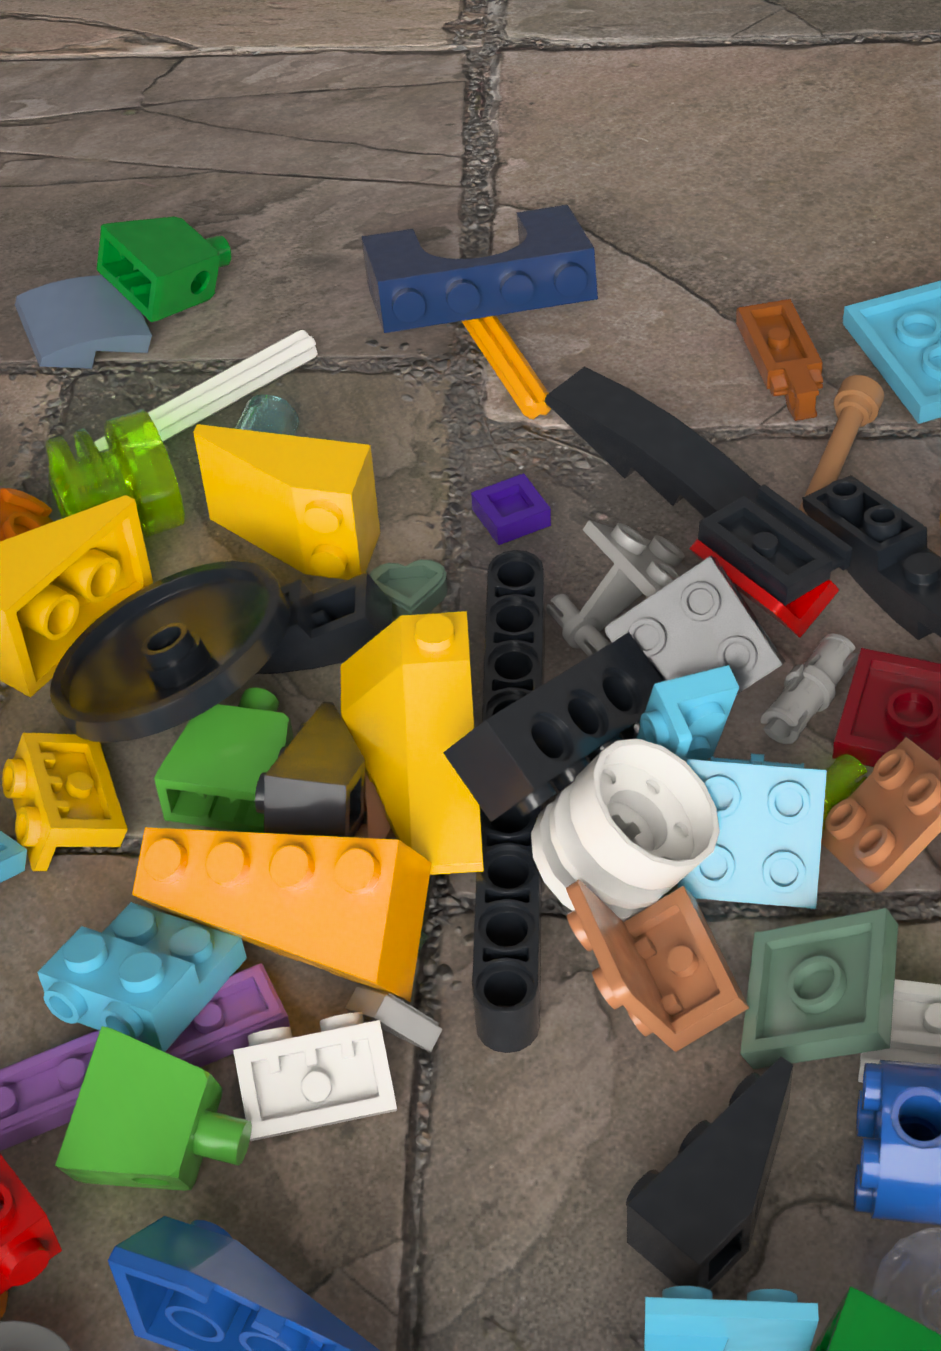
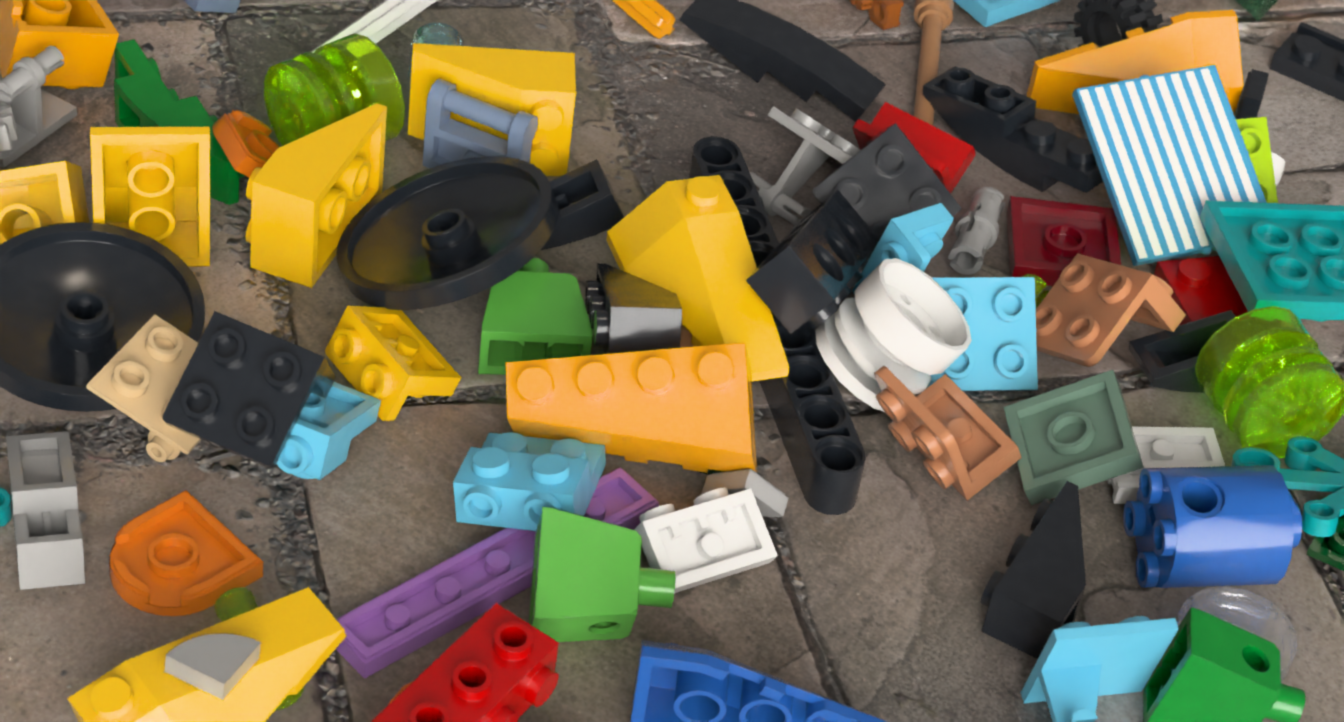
camera: 25 degrees left, 5 degrees down
(251, 530) = (452, 141): none -> sand blue plate
(412, 587) = (625, 174): sand green tile -> none
(511, 509) = (679, 109): dark purple plate -> none
(774, 544) = (925, 117): black plate -> none

